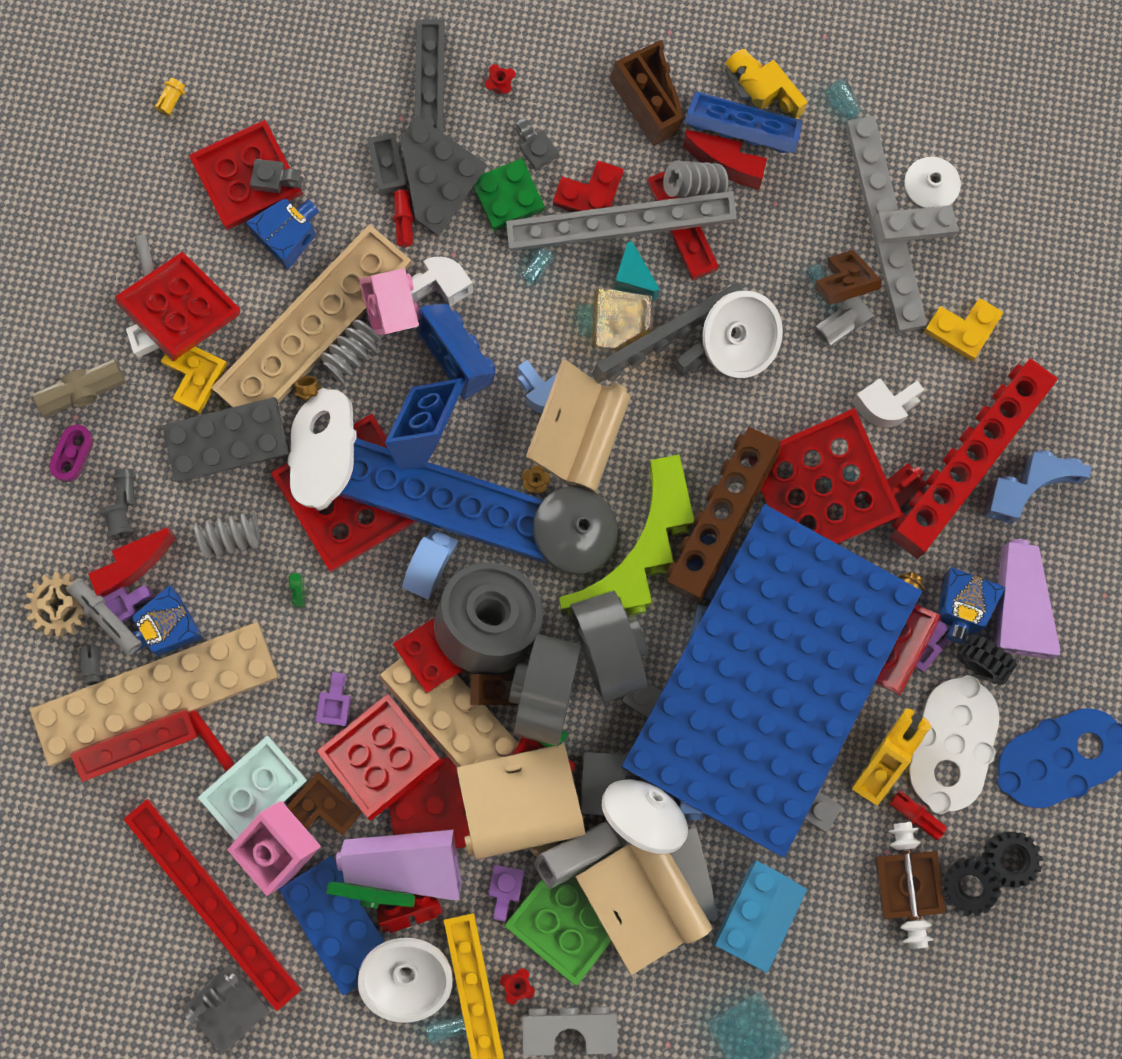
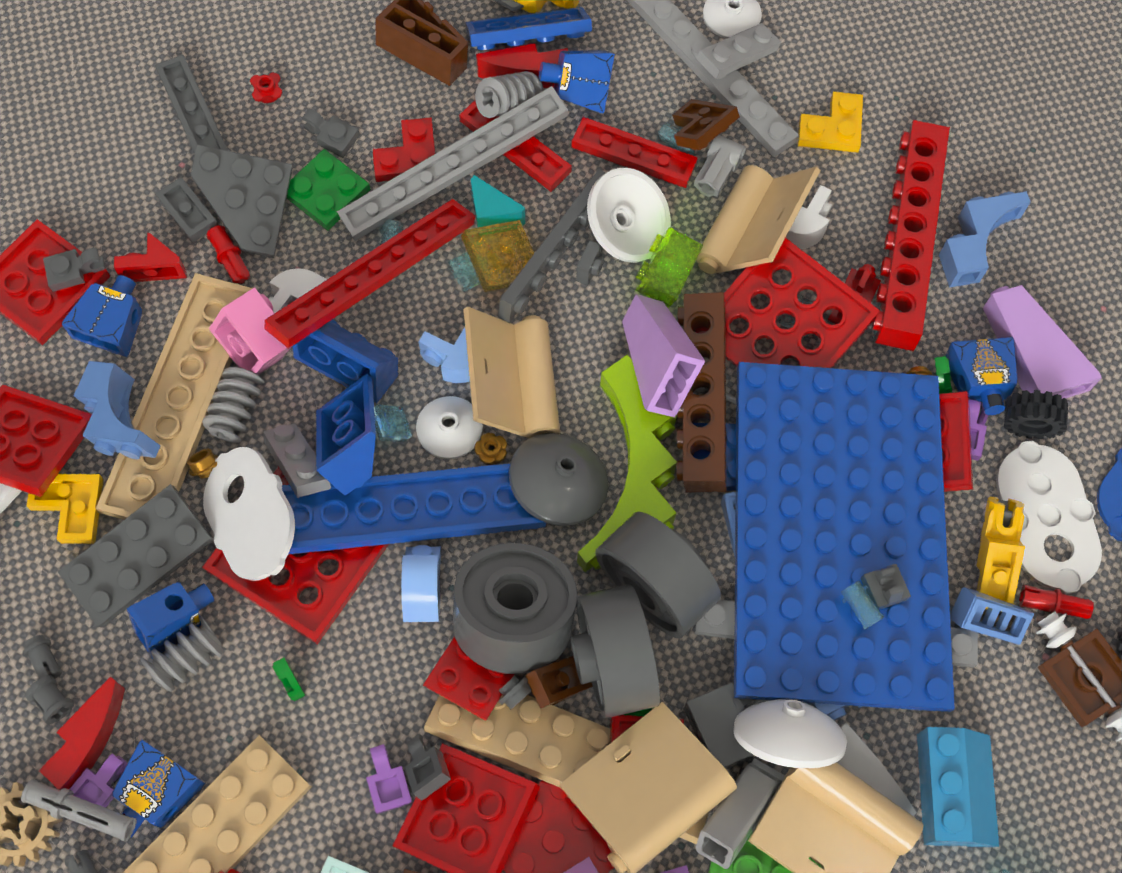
camera: 25 degrees left, 10 degrees down
(218, 496) = (167, 613): none -> blue torso
(248, 328) = (106, 395): none -> medium blue arch
(341, 202) = (157, 264): none -> red slope
(366, 709) = (428, 768): none -> dark grey plate
(377, 419) = (295, 459): none -> light grey plate
(457, 682) = (514, 691): none -> dark grey plate
(466, 423) = (391, 423): none -> clear light blue plate
(502, 457) = (448, 441): none -> white dish
(505, 292) = (368, 273): none -> red plate
(704, 468) = (661, 355): none -> lavender slope
(752, 393) = (668, 266): none -> clear neon green brick
(753, 745) = (862, 604): none -> clear light blue pin
(763, 192) = (581, 77): none -> blue torso
(778, 277) = (634, 152): none -> red plate
(780, 740) = (886, 586): none -> dark grey tile
(845, 385) = (754, 219): none -> tan door
(846, 786) = (970, 608): none -> medium blue slope
(931, 592) = (943, 374): none -> green tile

